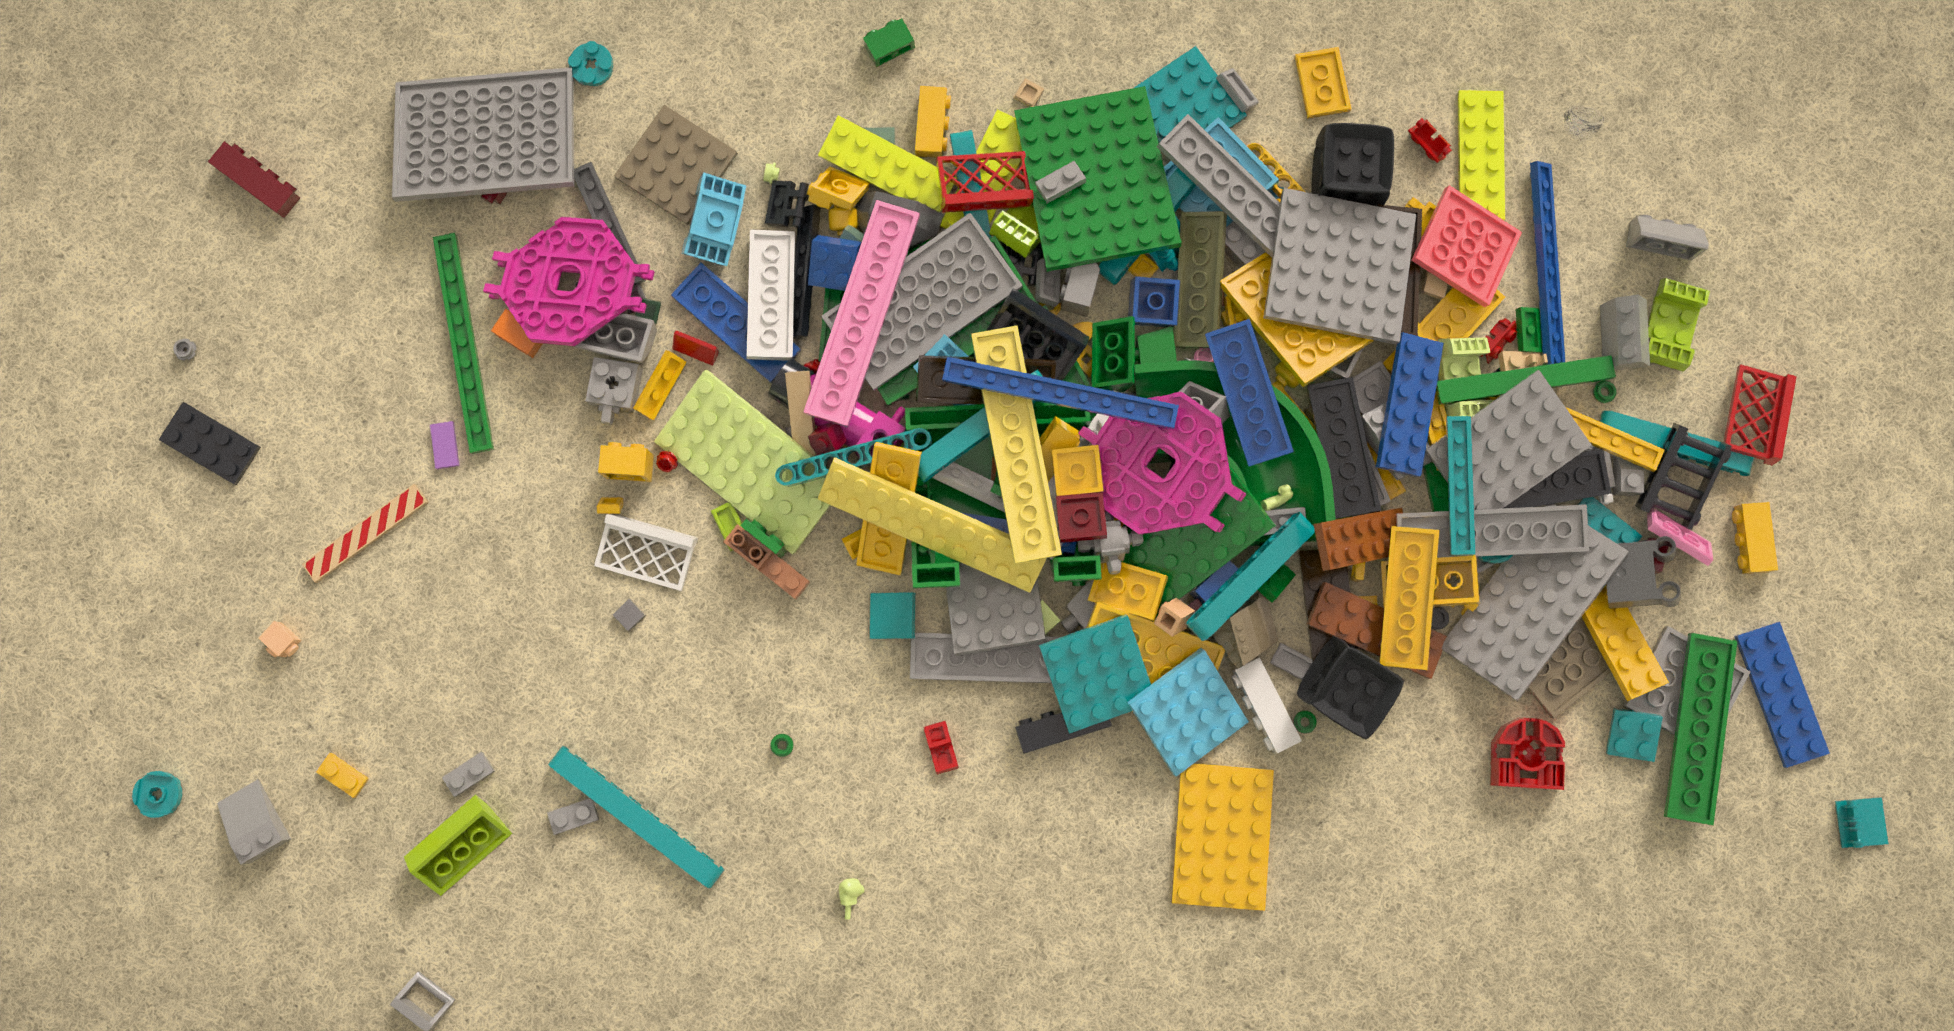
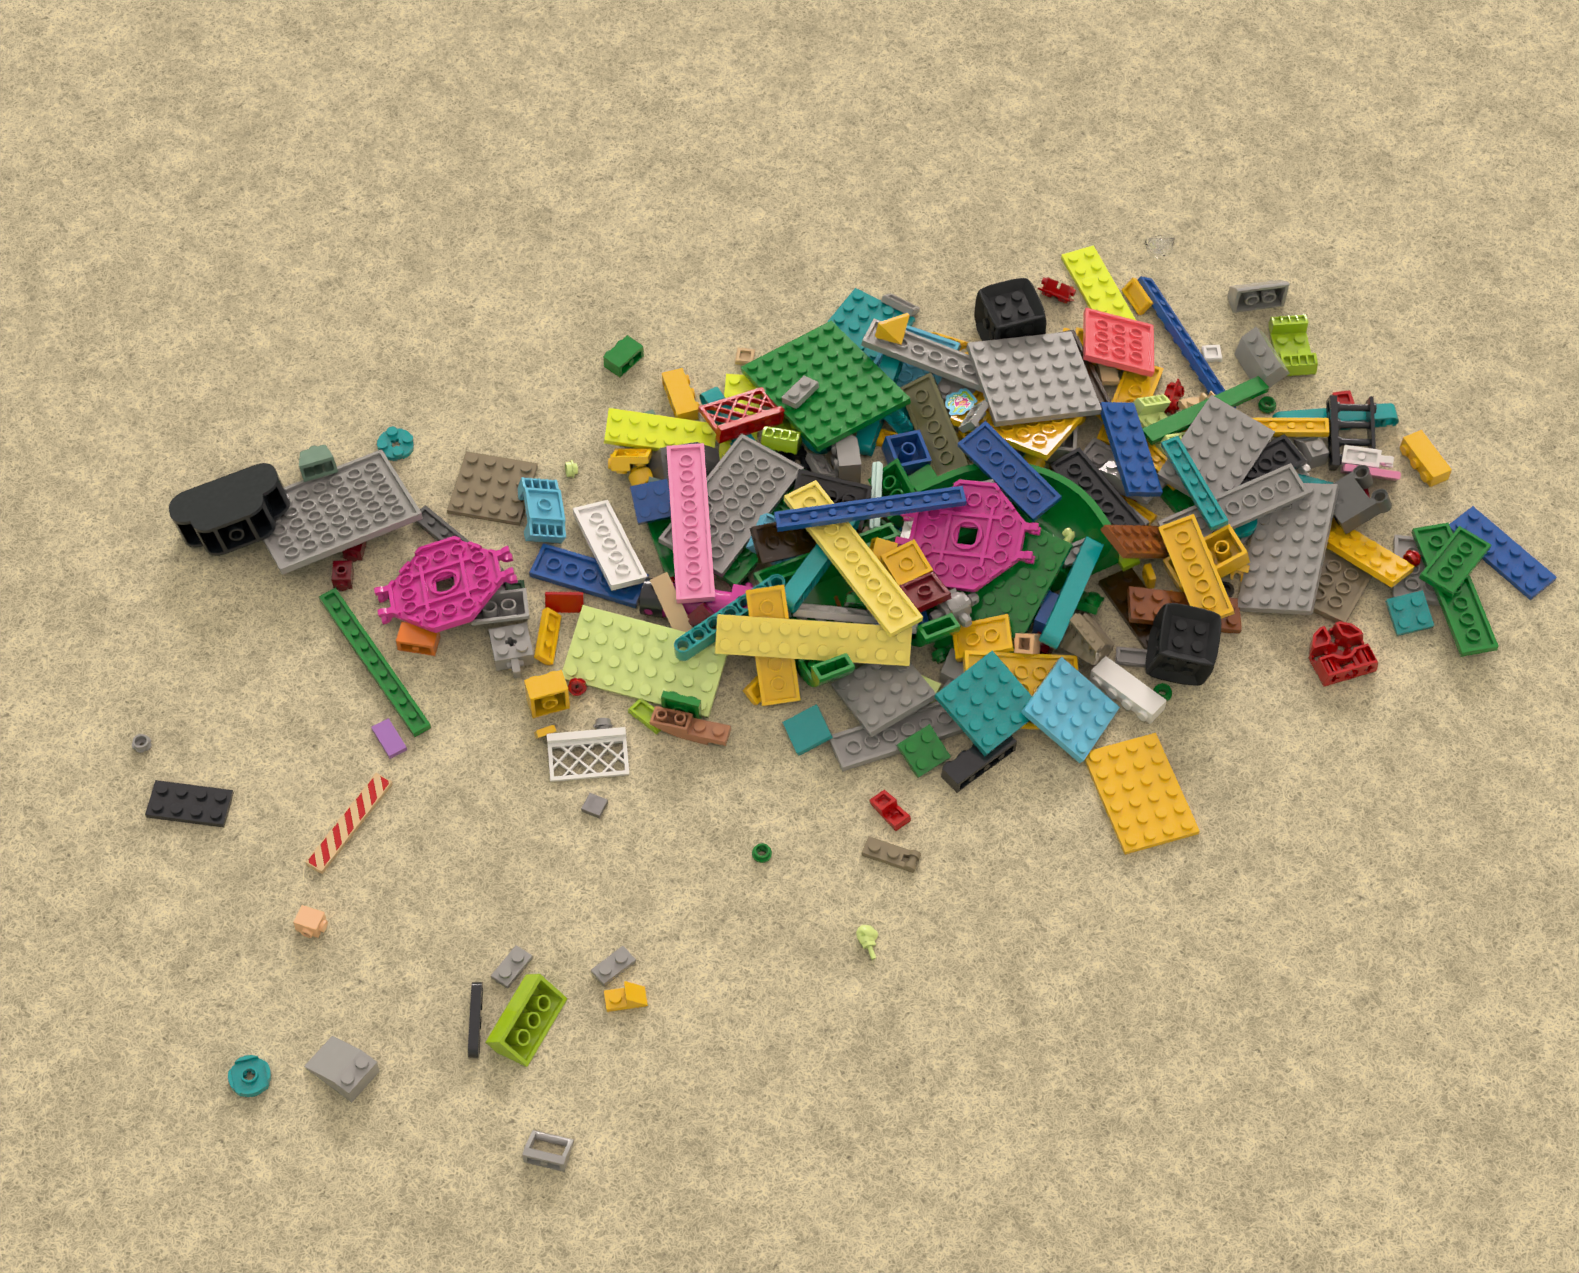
camera: 25 degrees left, 25 degrees down
(252, 178) = (153, 605): dark red brick -> none
(342, 775) = (404, 1005): yellow plate -> none
(370, 94) = (231, 510): none -> black brick
(405, 823) = (475, 1020): none -> black beam
(468, 219) = (342, 575): none -> dark red brick
(490, 60) = (316, 462): none -> sand green torso
(570, 859) = (625, 998): none -> yellow slope
(635, 817) = (667, 944): teal beam -> none
(676, 520) = (602, 723): none -> light grey plate
(781, 201) = (588, 486): black plate -> none
(802, 290) = (623, 510): black plate -> none
(918, 801) = (890, 854): none -> dark tan plate
(1006, 693) = (923, 751): none -> green plate
(1093, 345) = (876, 483): none -> light aqua axle
(1201, 142) = (893, 329): none -> yellow slope
(1242, 261) = (960, 401): none -> sticker
(1245, 295) = (974, 416): none -> light grey plate
(1322, 82) = (958, 281): yellow tile -> none
(1521, 184) = (1137, 296): none -> yellow tile
(1528, 329) = (1190, 382): green plate -> none
(1573, 295) = (1212, 353): none -> white tile
(1671, 669) = (1412, 557): none -> red plate
(1682, 517) = (1366, 456): none -> white plate
(1698, 420) = (1344, 397): none -> red plate
(1718, 697) = (1455, 561): none -> green tile
(1779, 414) = (1397, 377): red fence -> none

